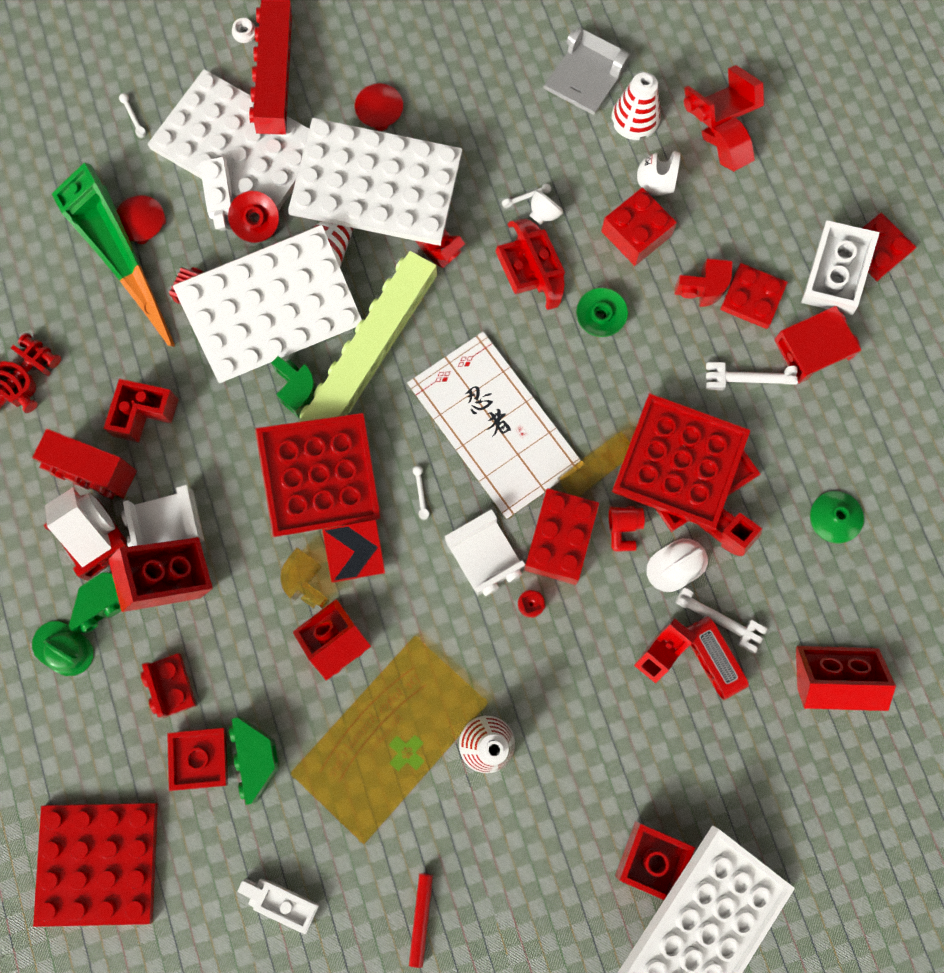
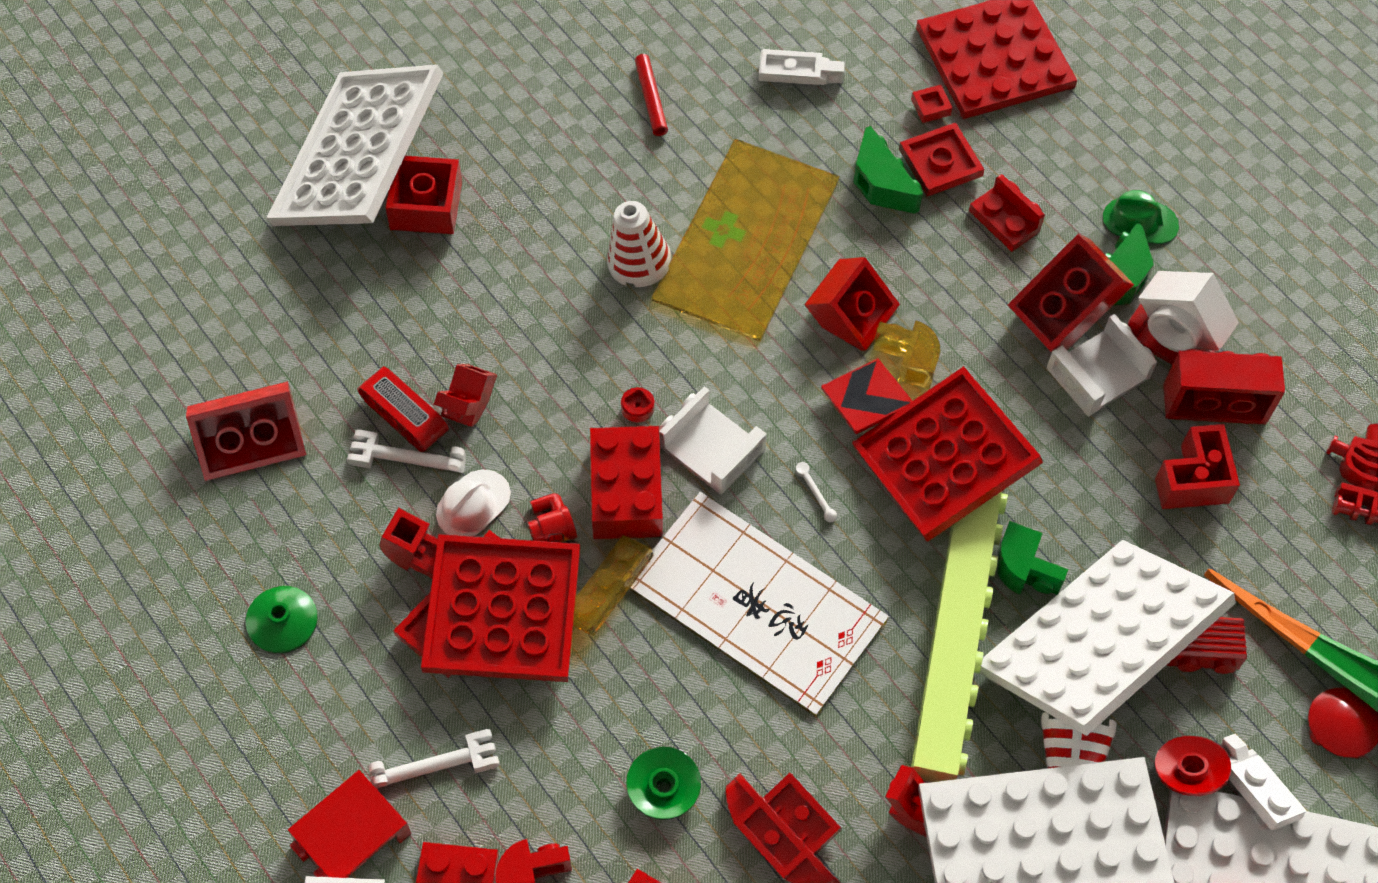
camera: 160 degrees right, 15 degrees down
(179, 822) = (931, 103): none -> red plate

